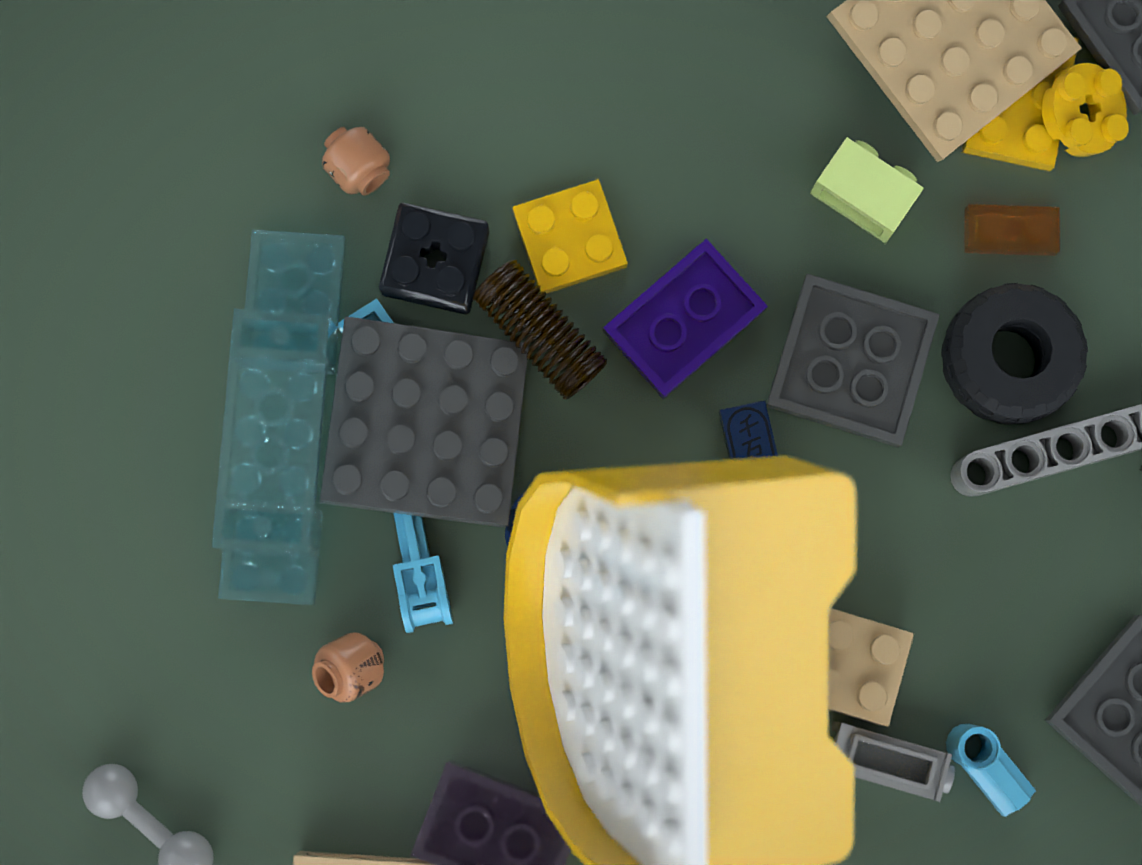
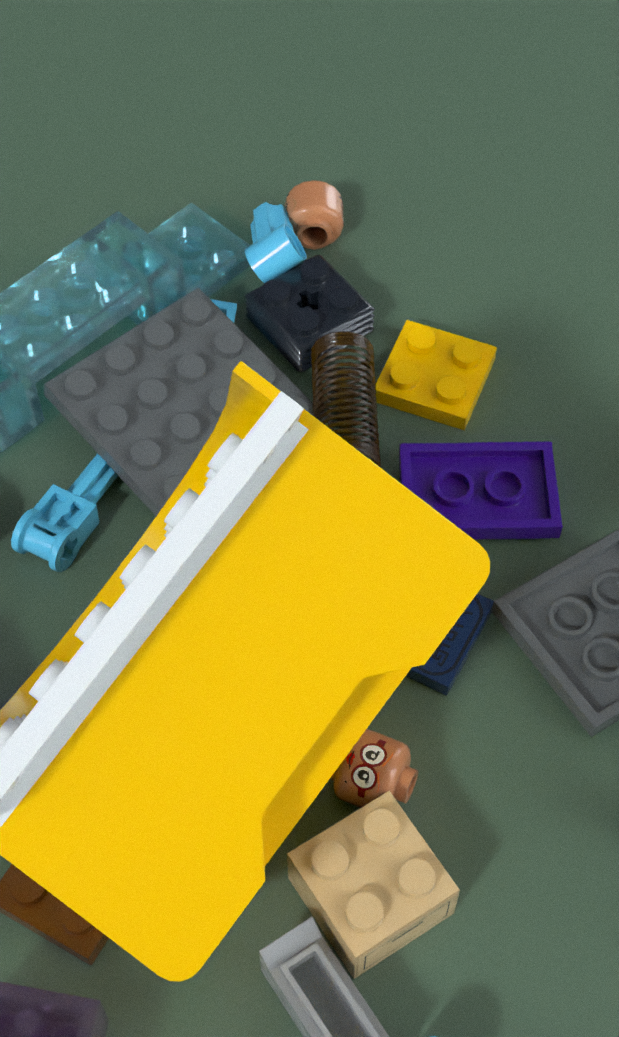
camera: 45 degrees right, 25 degrees down
(362, 223) = (274, 243): none -> medium azure piece

